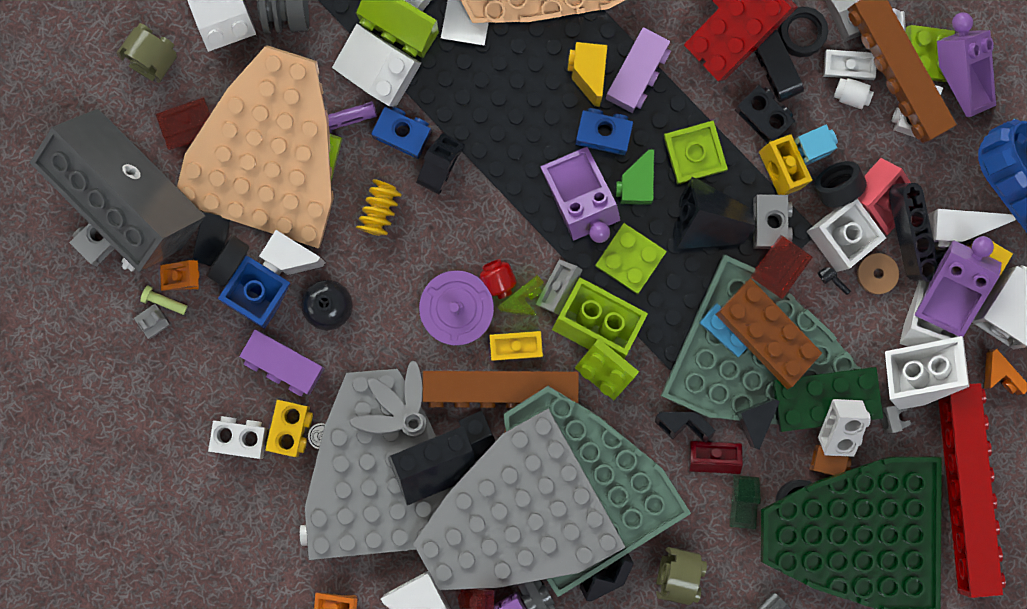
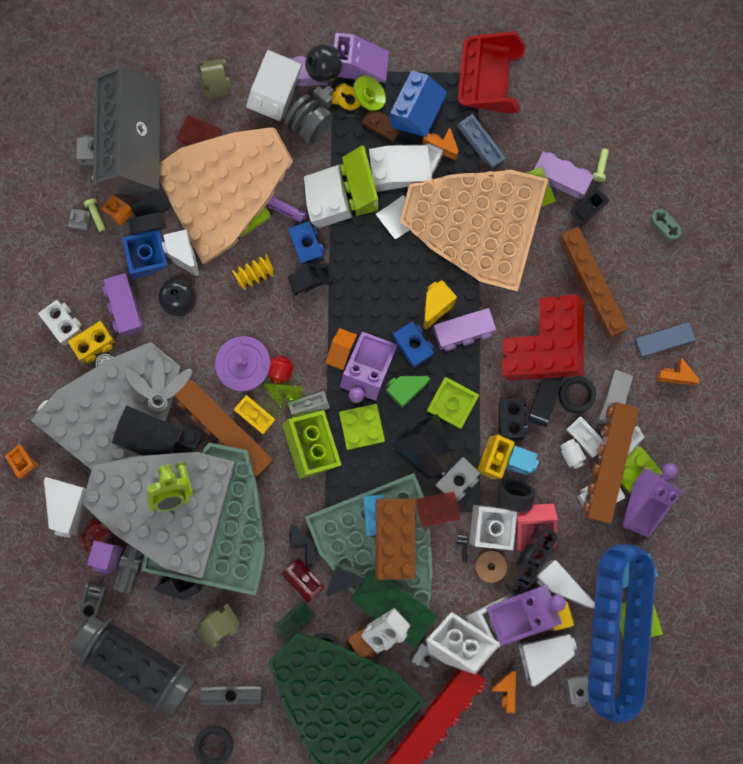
camera: 45 degrees right, 5 degrees down
(519, 491) = (168, 493): none -> lime piece
(537, 202) = (341, 349): none -> orange slope
(606, 369) = (288, 473): lime plate -> none

